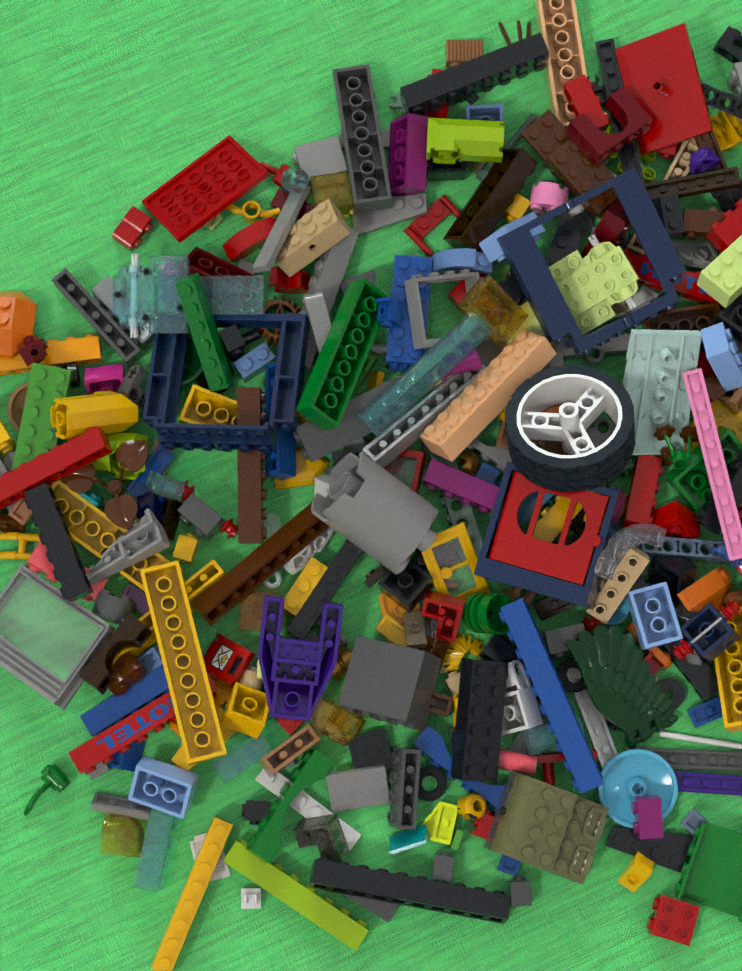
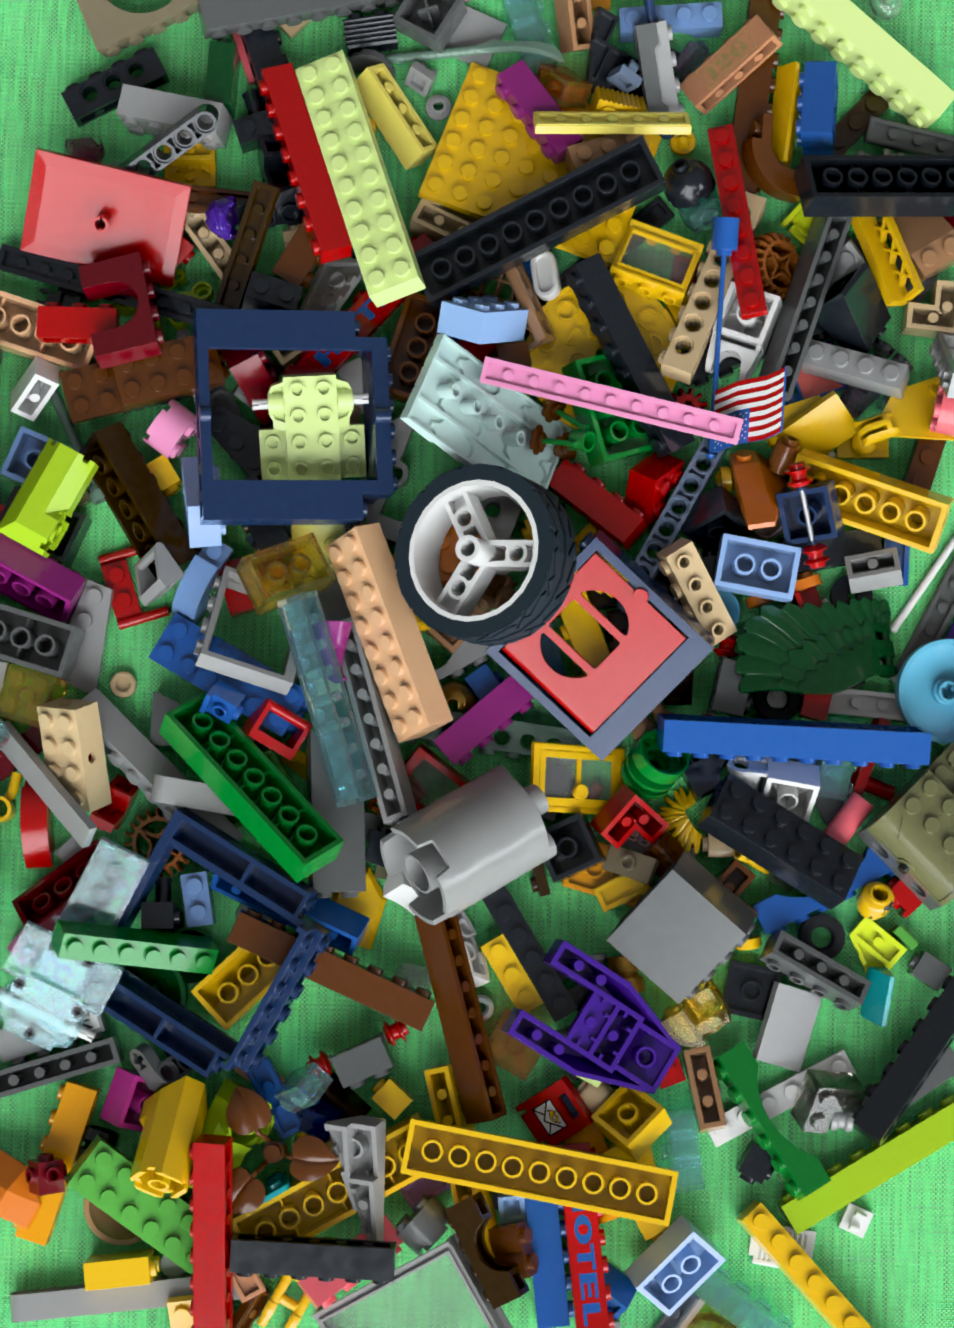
camera: 65 degrees left, 5 degrees up
(312, 854) = (842, 1121): none -> light grey wheel
(369, 250) = (123, 684): none -> tan tile
(379, 349) = (288, 749): none -> red tile
(401, 735) = (752, 943): none -> yellow tile
(446, 236) = (167, 574): none -> light grey tile
(530, 101) = (34, 388): none -> white brick
(581, 702) = (814, 707): none -> red brick
(624, 541) = (655, 560): clear tile -> none
(693, 697) = (874, 570): none -> light grey brick
(701, 58) = (85, 148): none -> hair
(703, 569) = (724, 478): none -> yellow tile

